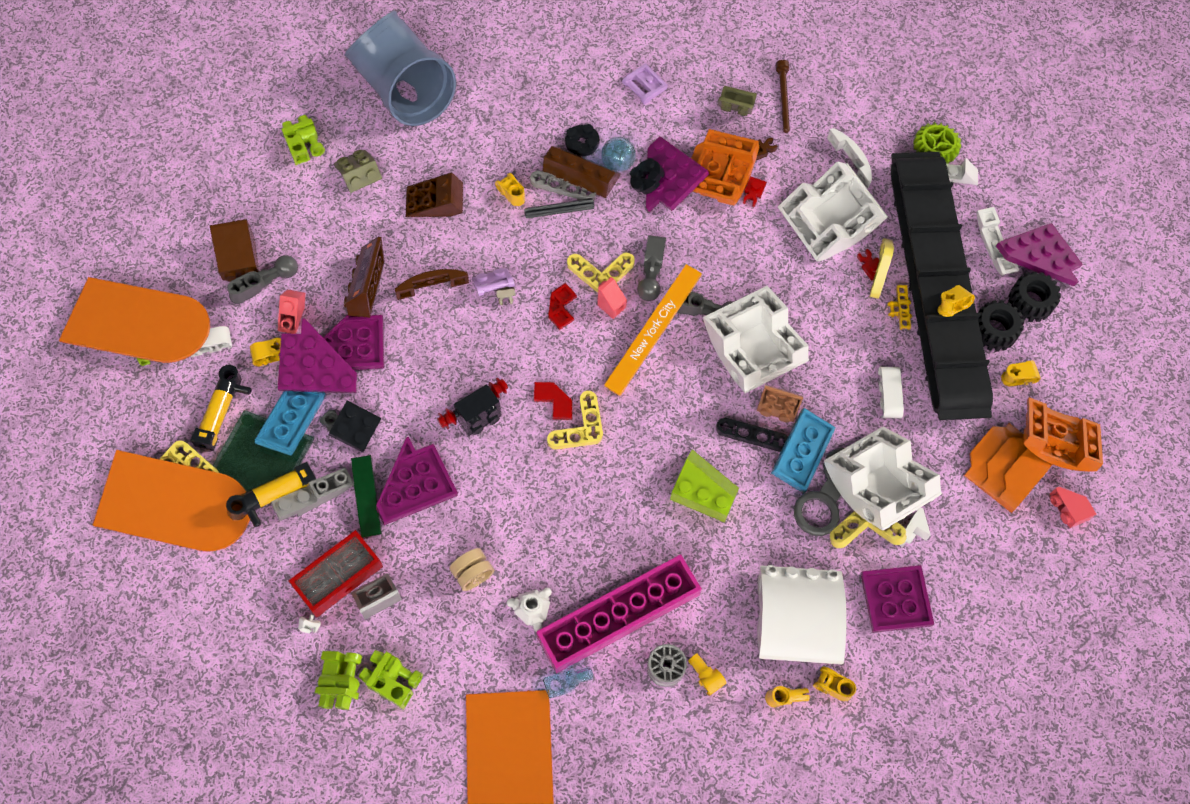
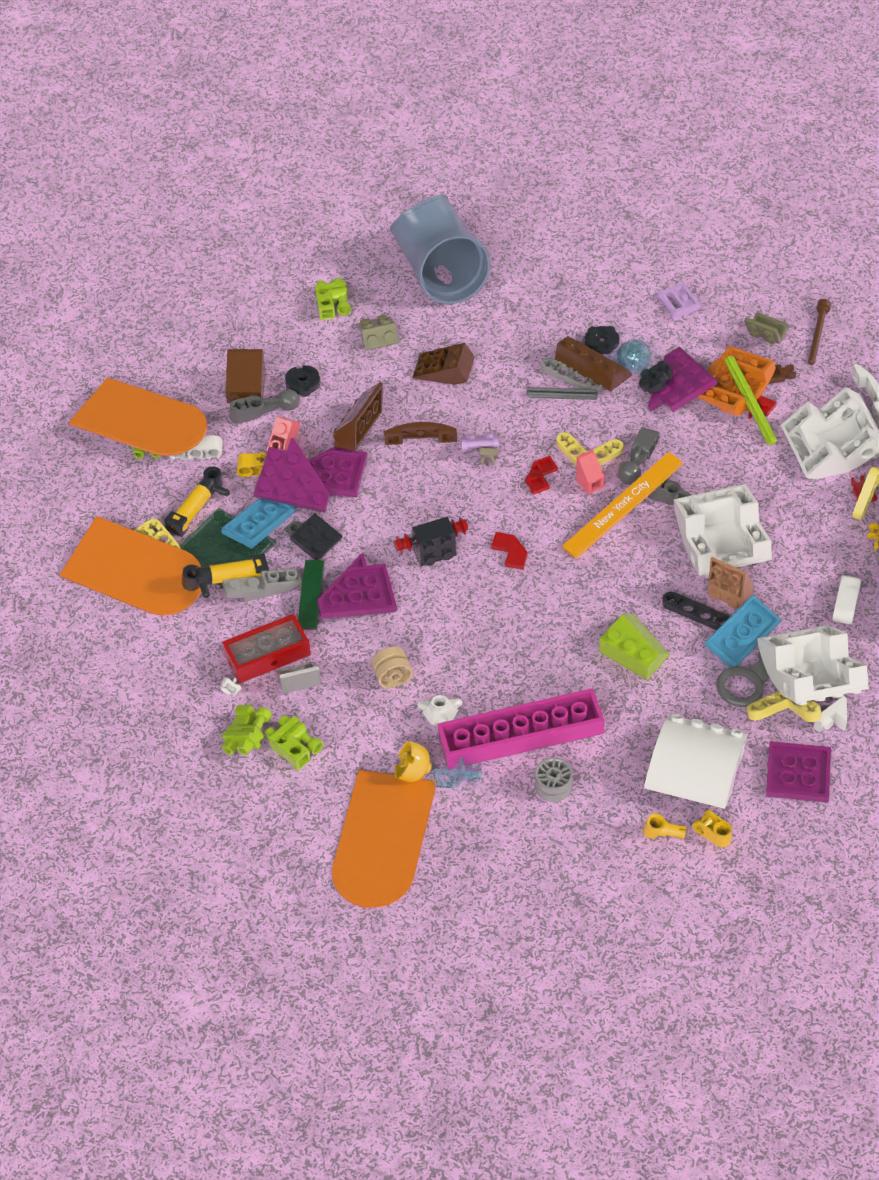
camera: 20 degrees right, 15 degrees down
(297, 249) = (305, 387): none -> black plate
(509, 188) = (520, 370): yellow piece -> none
(521, 679) = (413, 763): none -> yellow cylinder
(583, 432) = (531, 580): light yellow beam -> none
(709, 678) = (591, 799): yellow pin -> none
(745, 188) = (750, 399): none -> lime axle

